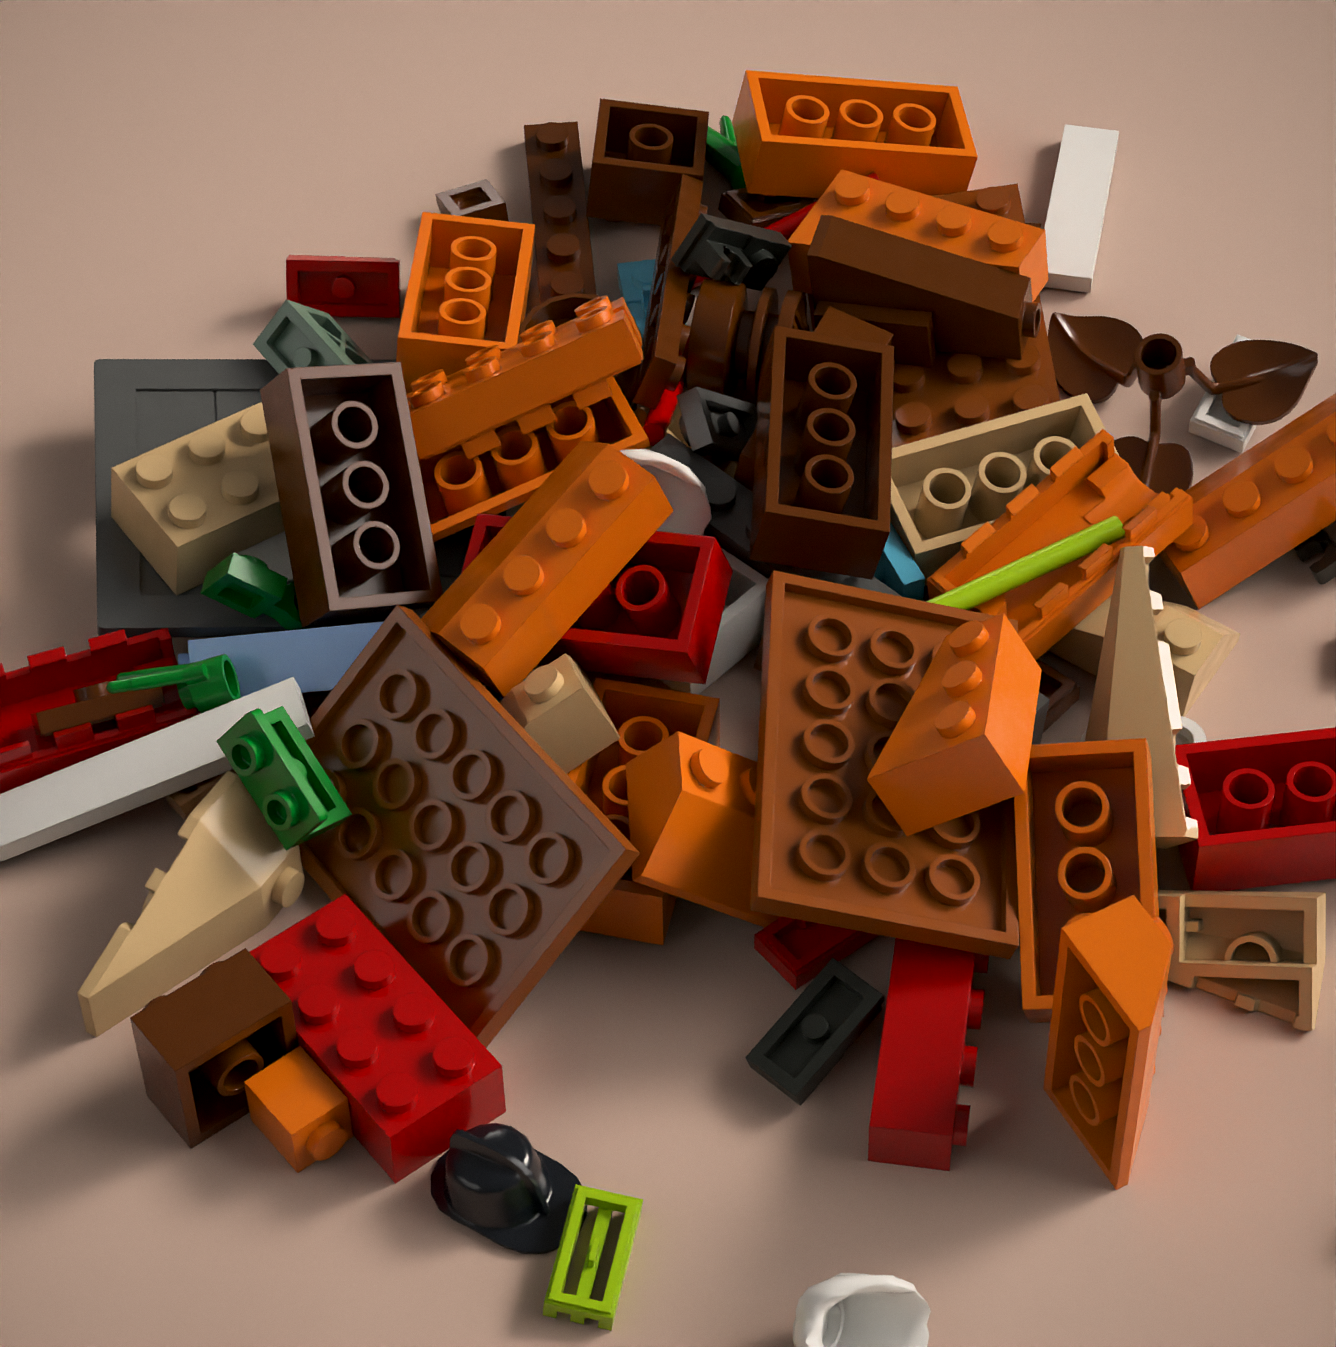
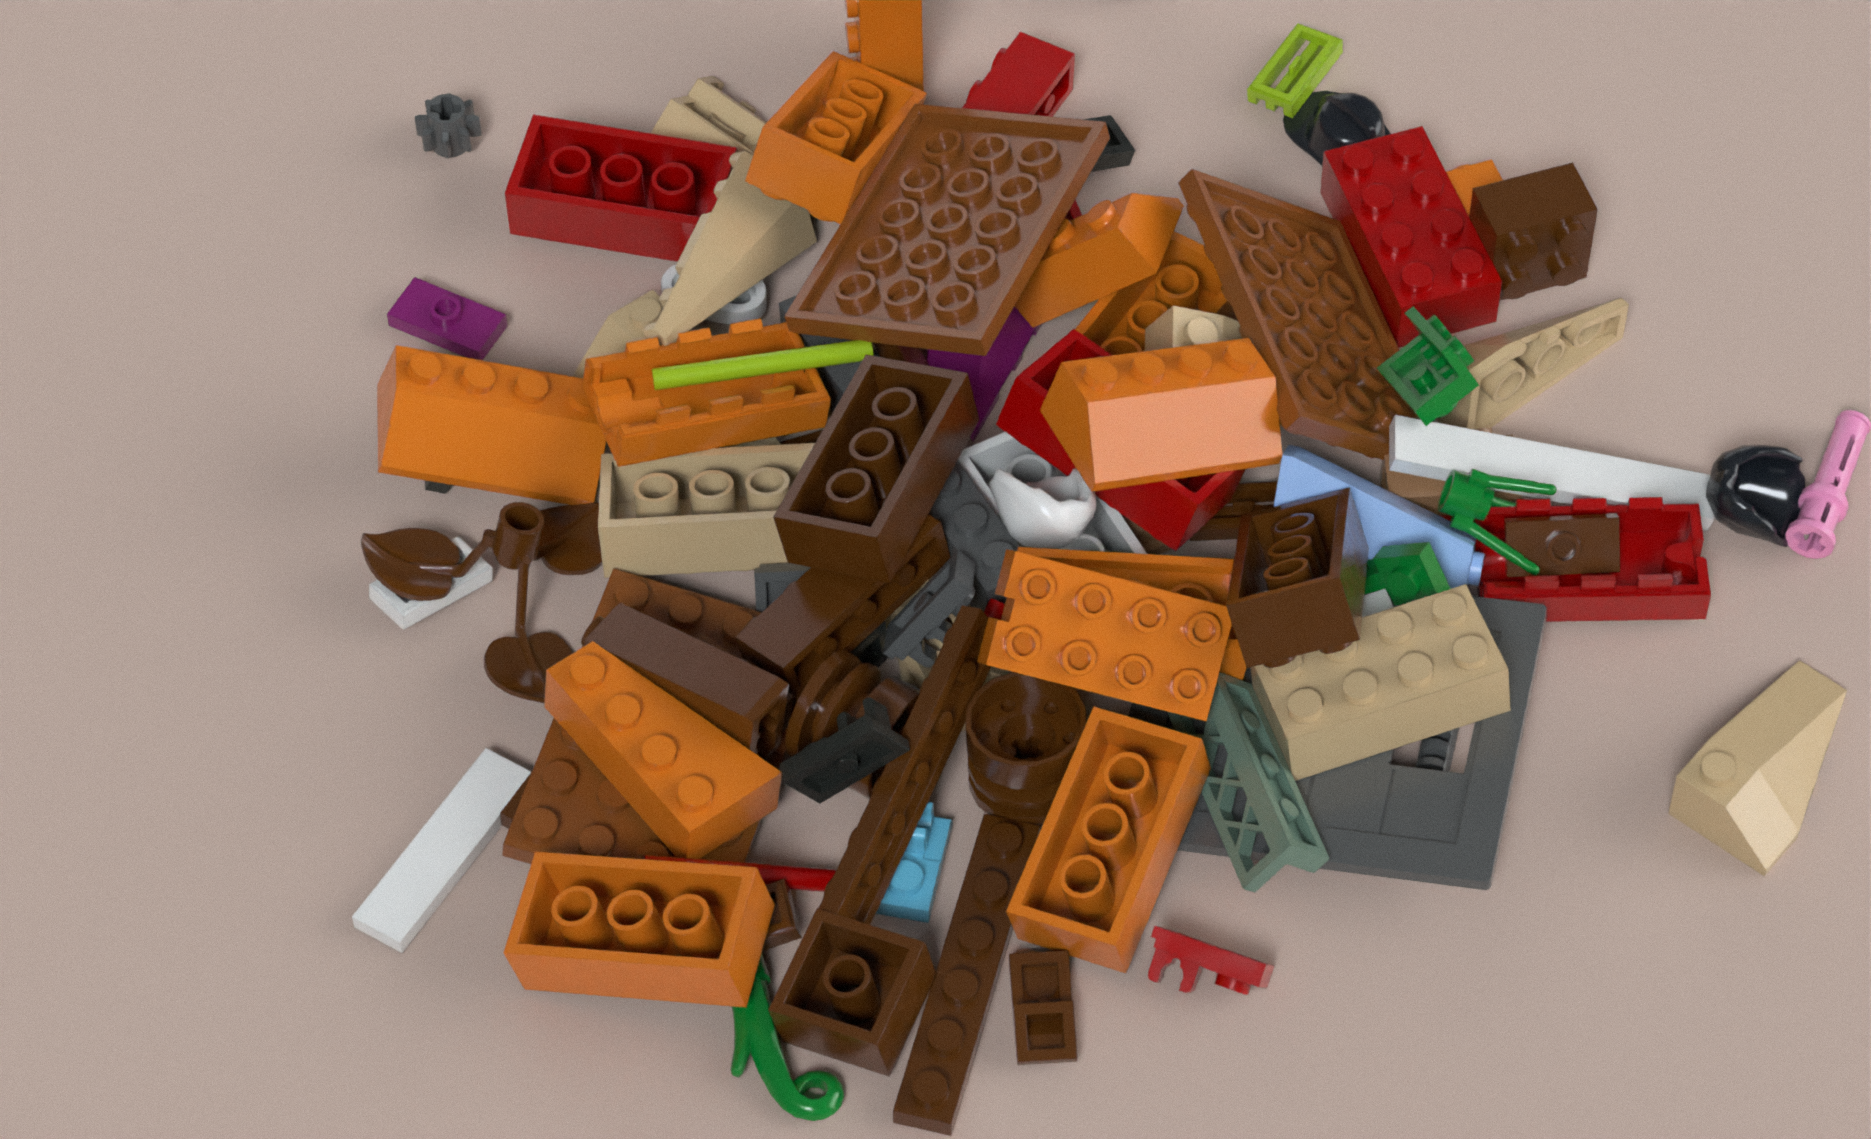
camera: 160 degrees left, 5 degrees up
(963, 730) = (890, 174): orange wedge -> none

